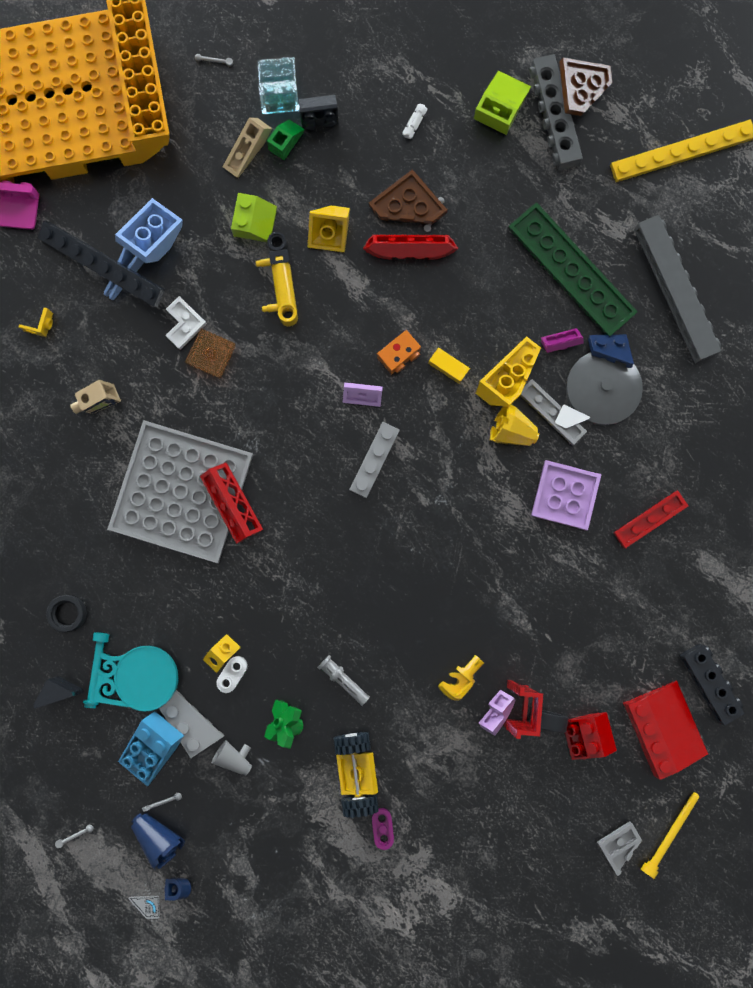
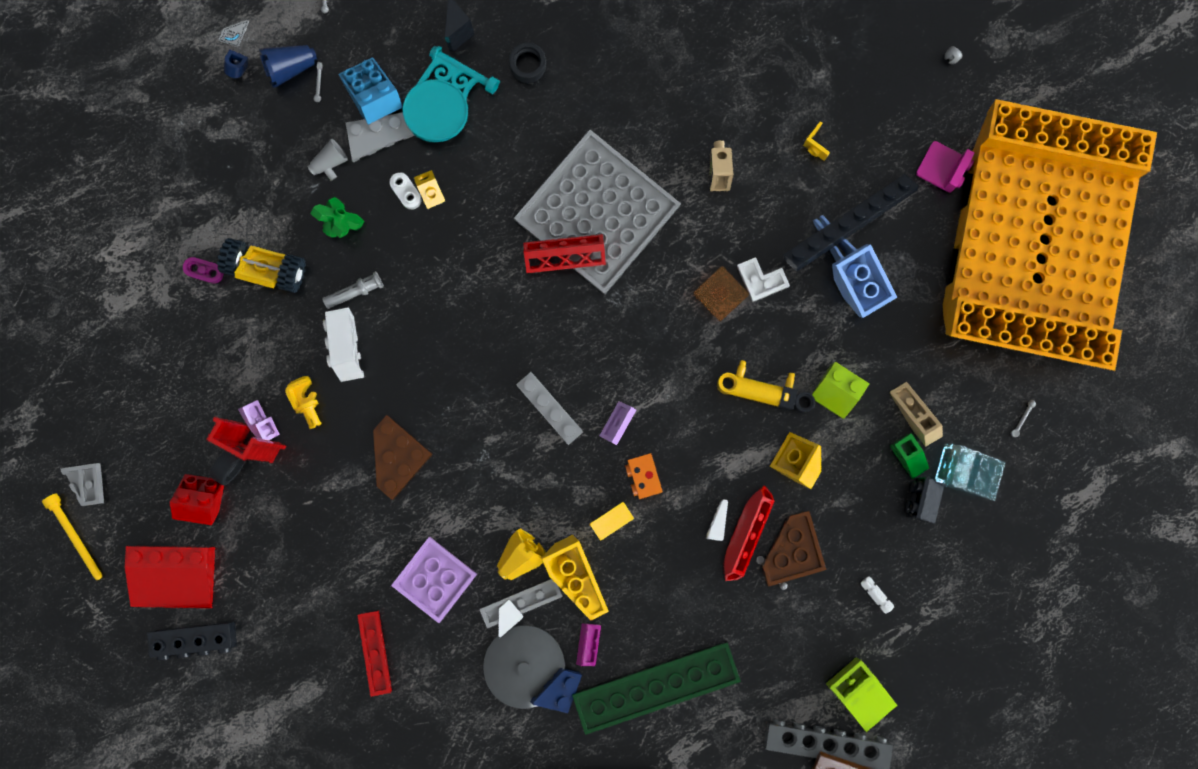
camera: 120 degrees right, 0 degrees up
(396, 667) = (342, 344): none -> white wedge
(414, 273) = (717, 526): none -> white slope
(474, 575) = (396, 457): none -> reddish brown plate

